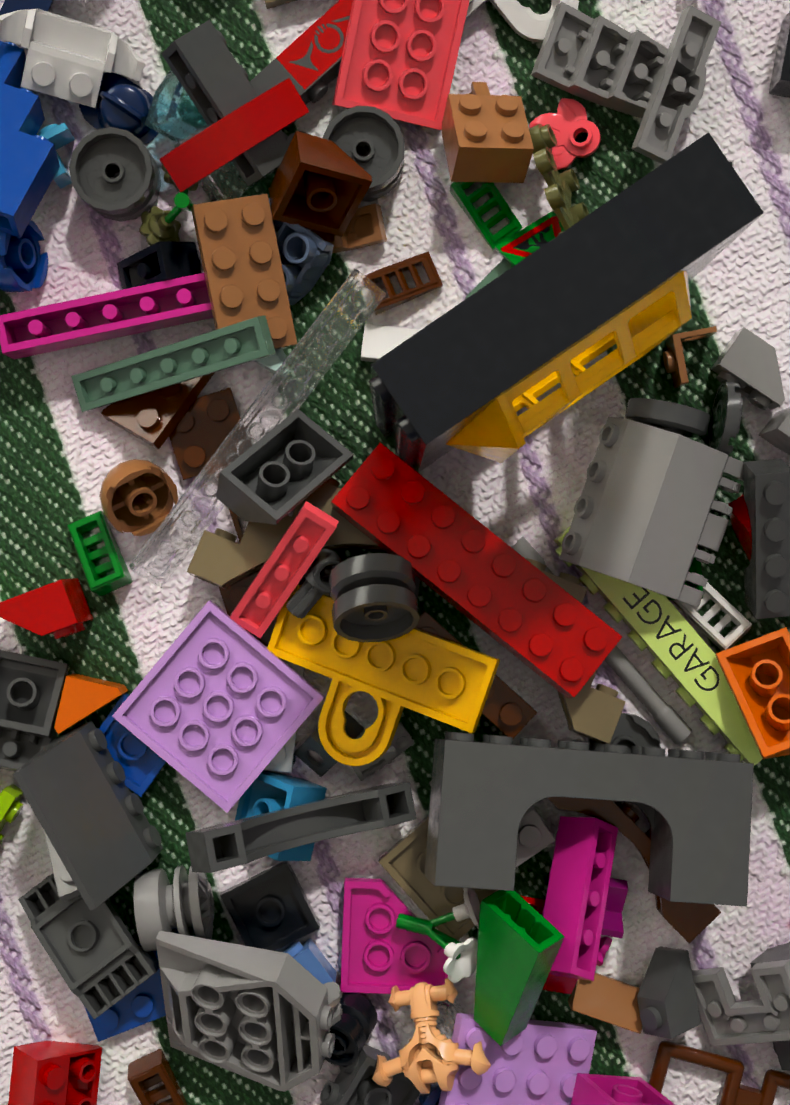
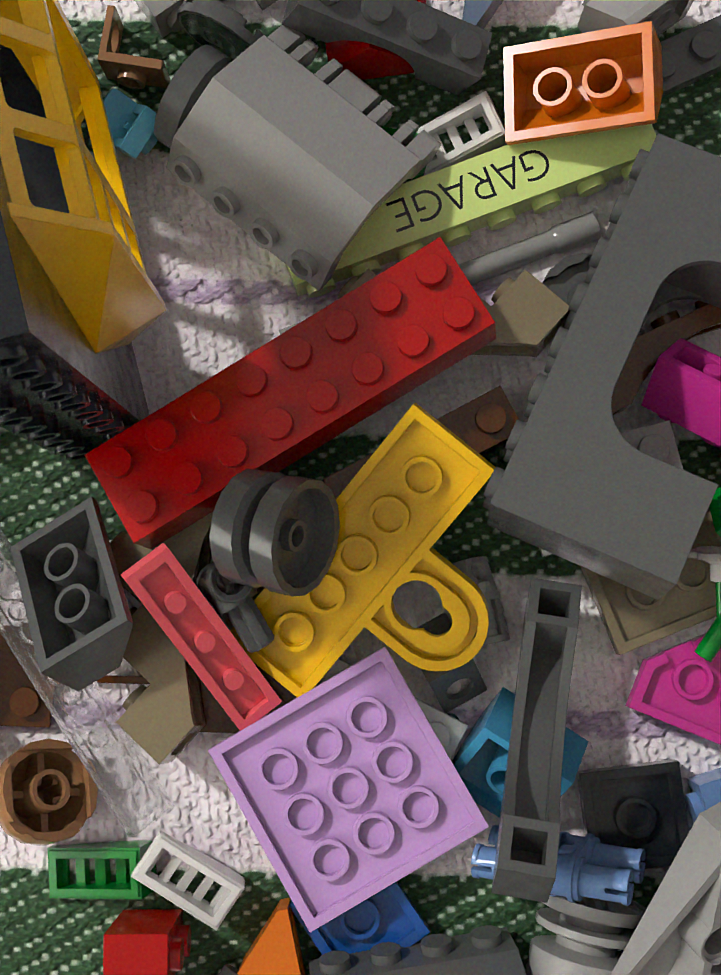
camera: 70 degrees left, 5 degrees down
(109, 646) = (211, 912): none -> white slope
(223, 888) = (582, 869): none -> medium blue pin
(634, 379) = (130, 124): none -> medium azure bracket

